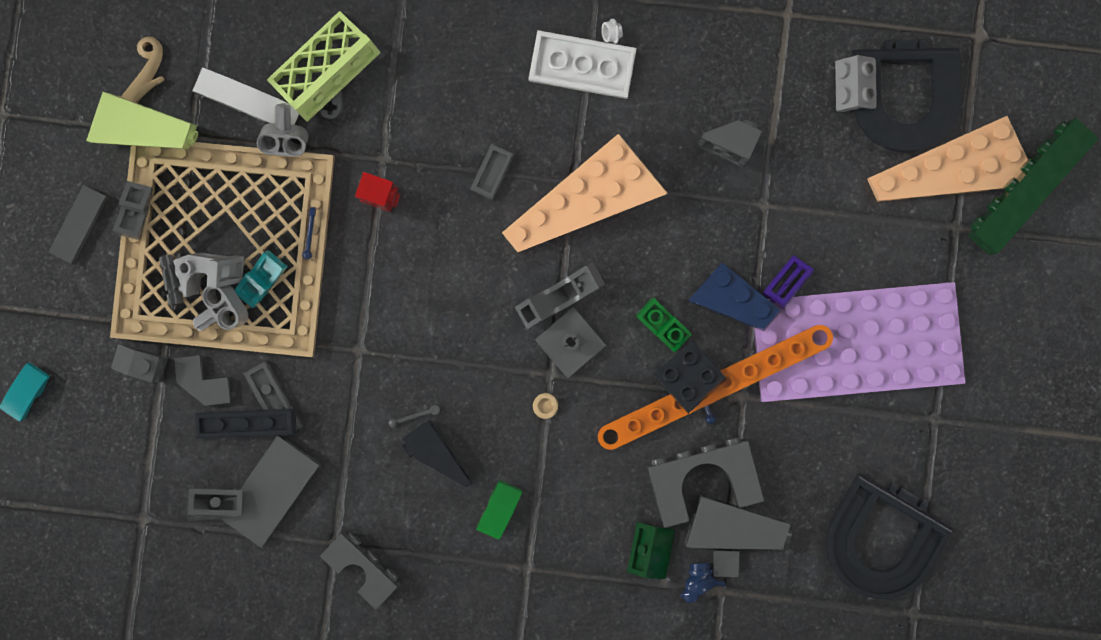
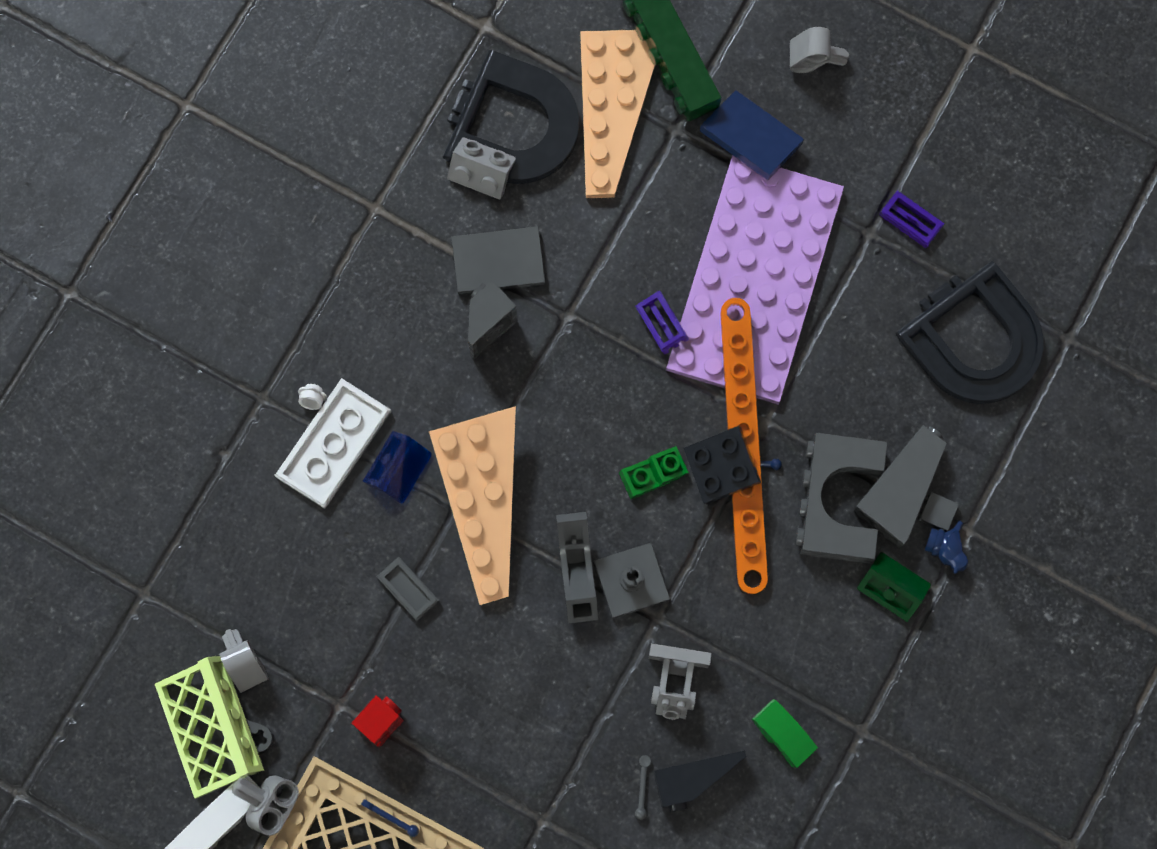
camera: 75 degrees left, 10 degrees down
(380, 69) = (241, 661): none -> light grey beam
(486, 413) = (679, 663): none -> light grey tile
(545, 405) = (690, 635): tan tile -> none
(584, 123) = (398, 466): none -> clear blue panel
(733, 297) = (653, 386): dark blue wing -> none
(785, 130) = (505, 257): none -> dark grey tile
(951, 448) = (904, 227): none -> dark purple tile
(977, 291) = (751, 135): none -> dark blue tile
(1072, 312) = (814, 49): none -> light grey beam

